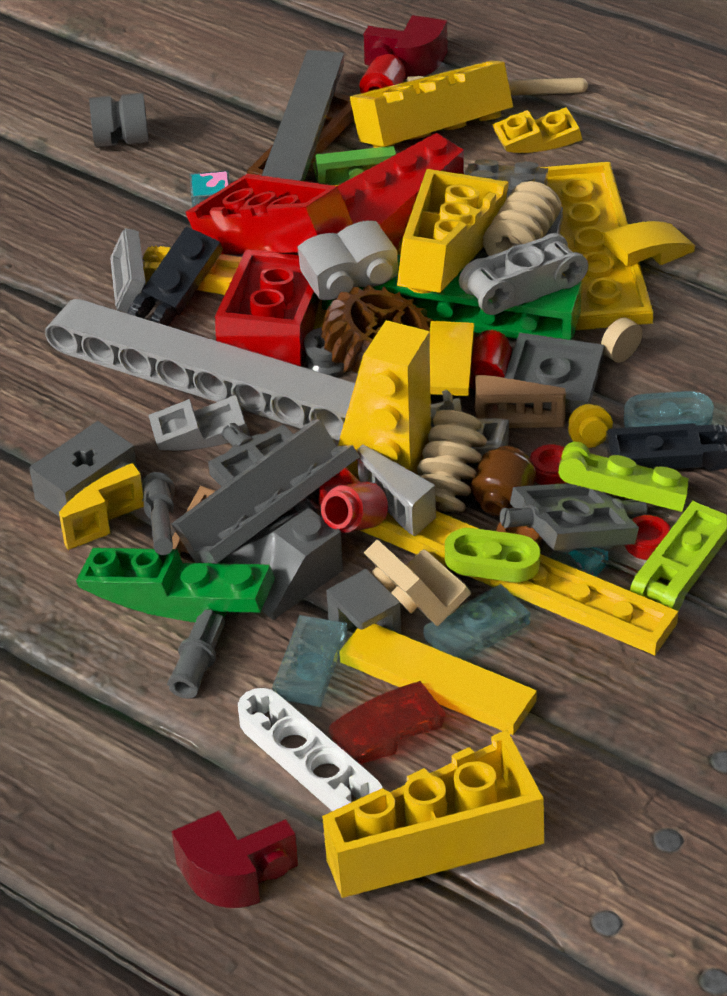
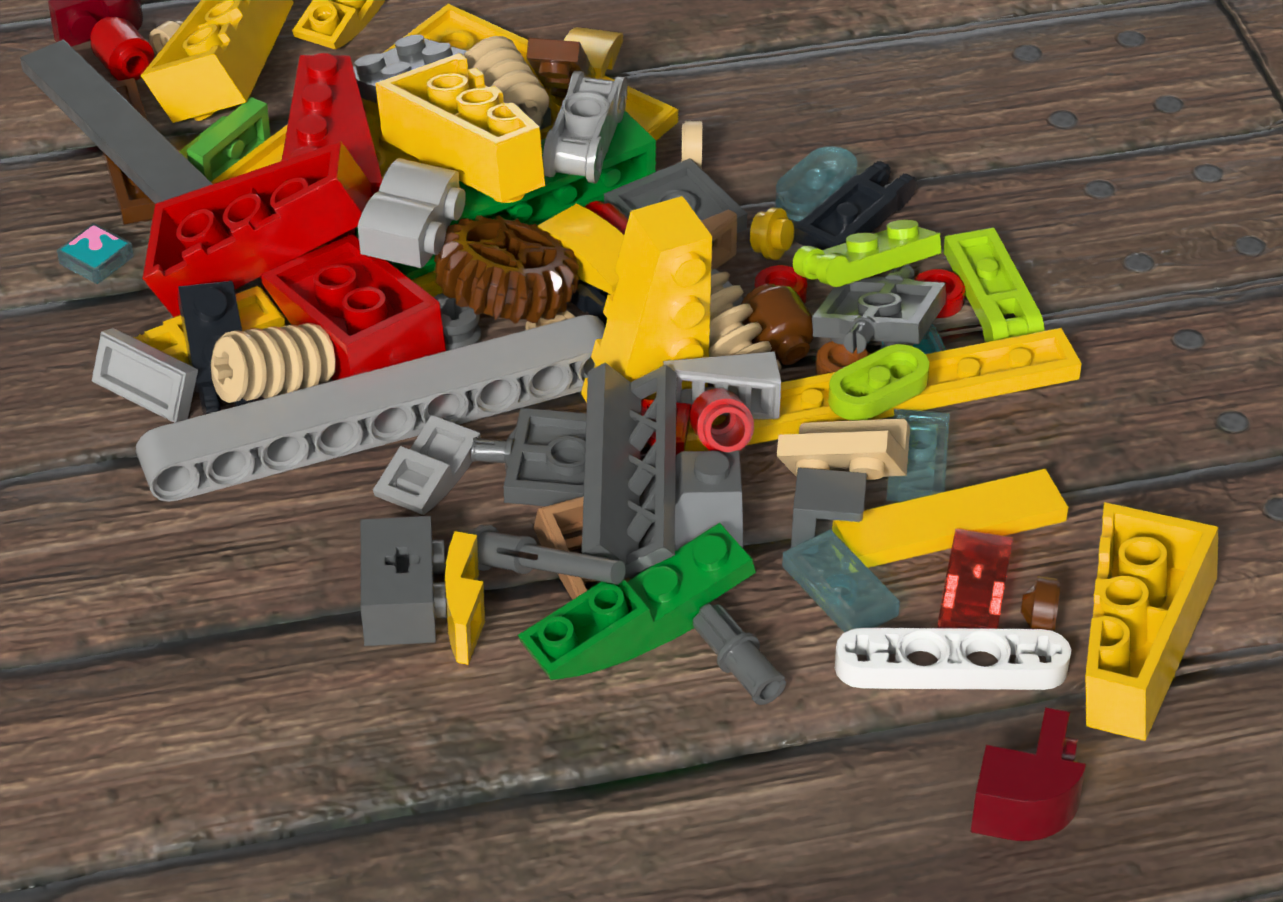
camera: 50 degrees left, 0 degrees up
(175, 300) = (271, 361): none -> tan piece
(398, 764) = (1041, 603): none -> reddish brown tile
(554, 219) = (556, 61): none -> reddish brown plate

